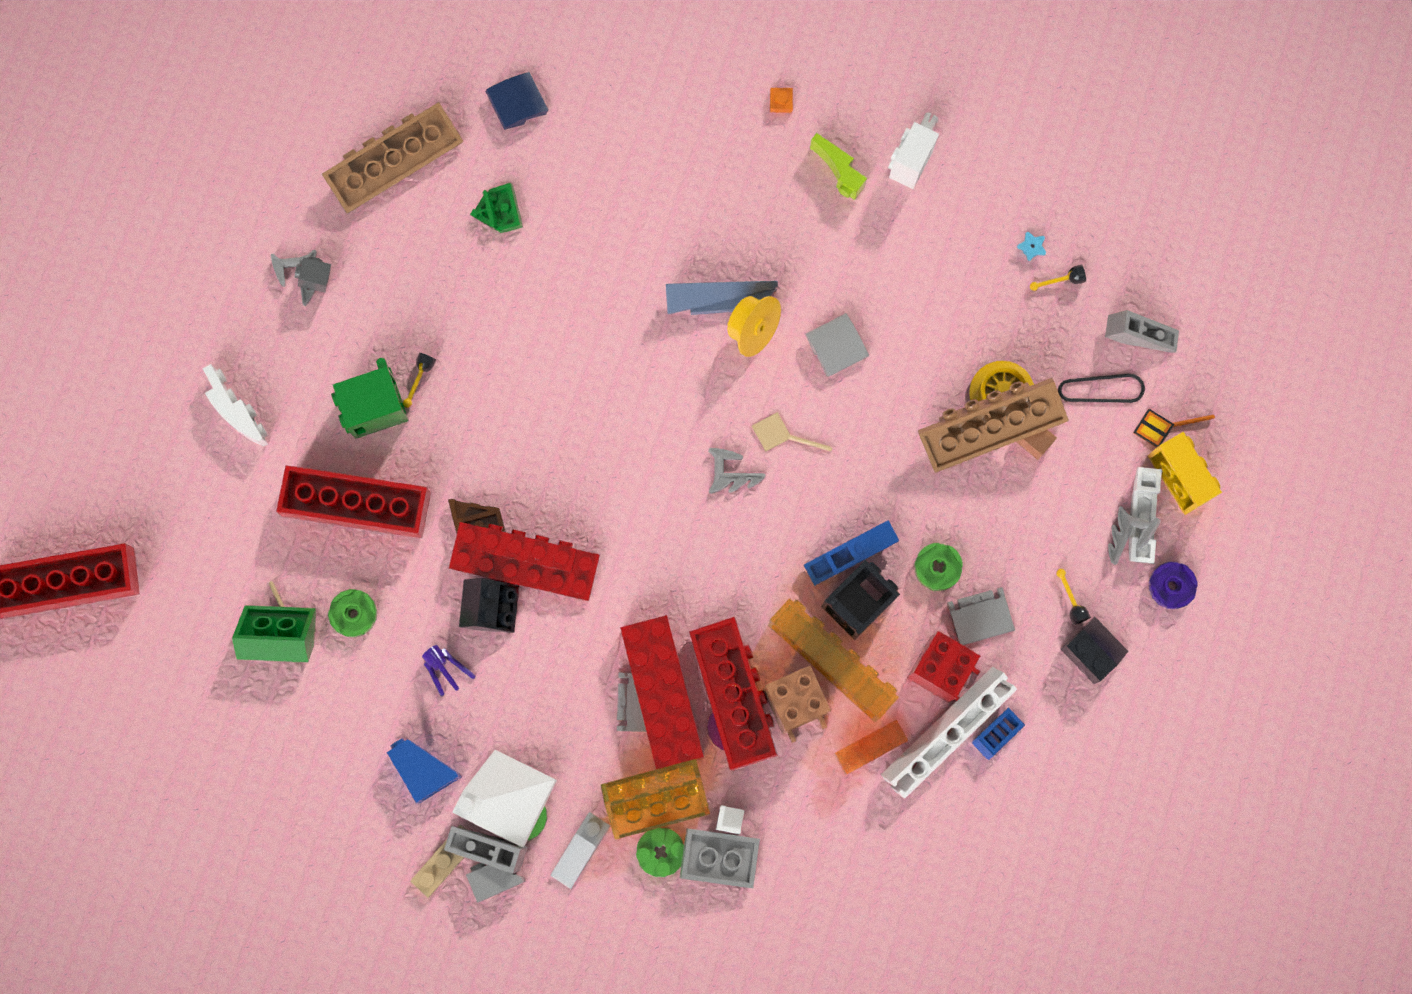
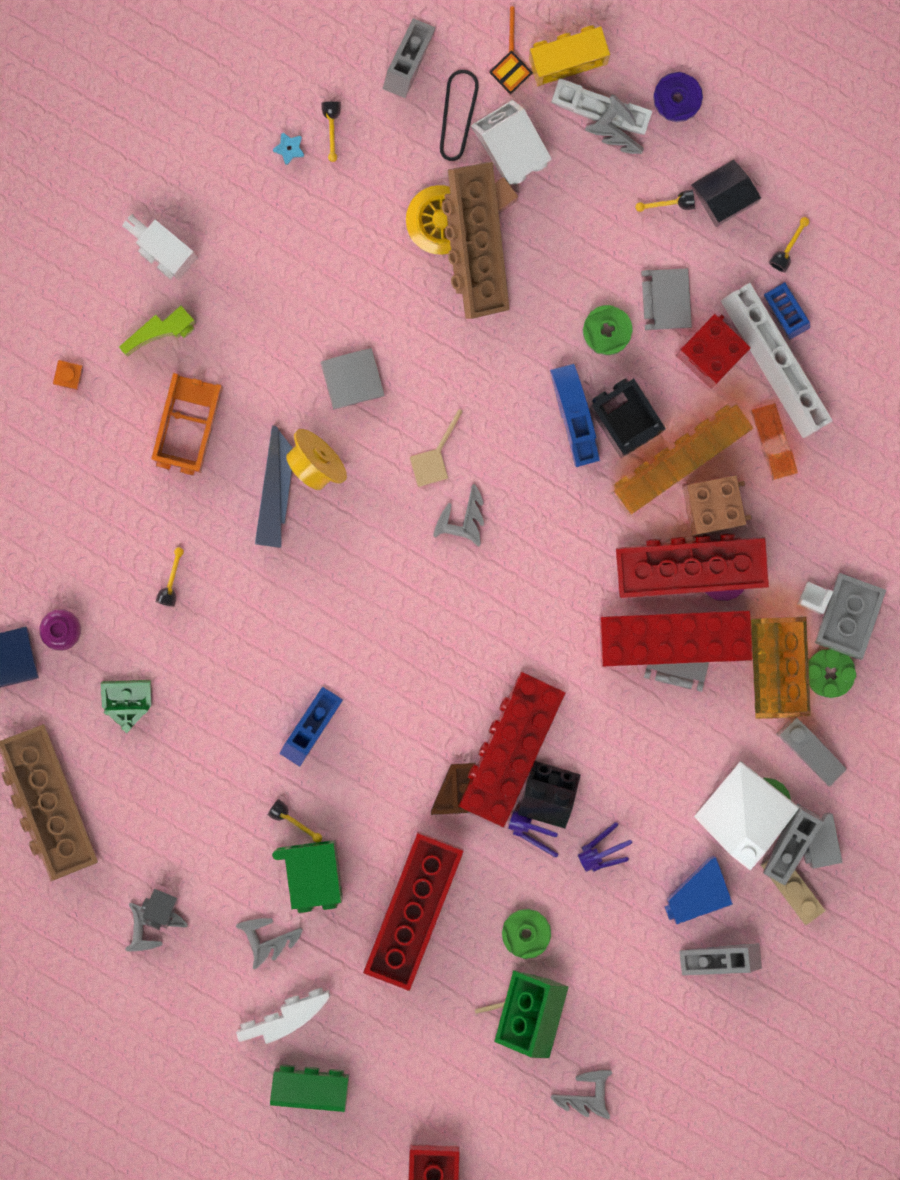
camera: 75 degrees left, 10 degrees up
(168, 442) = (309, 1088): none -> green slope
(201, 714) = (594, 1103): none -> light grey piece
(293, 376) = (262, 950): none -> light grey piece
(361, 805) = (721, 959): none -> light grey slope
(454, 587) = (522, 824): none -> dark purple plant
(508, 374) = (311, 726): none -> blue slope
(551, 136) = (60, 630): none -> magenta piece
(602, 224) = (167, 595): none -> hinge
(791, 207) = (194, 392): none -> orange door
(1045, 717) = (781, 260): none -> hinge
(1089, 441) = (512, 142): none -> white slope

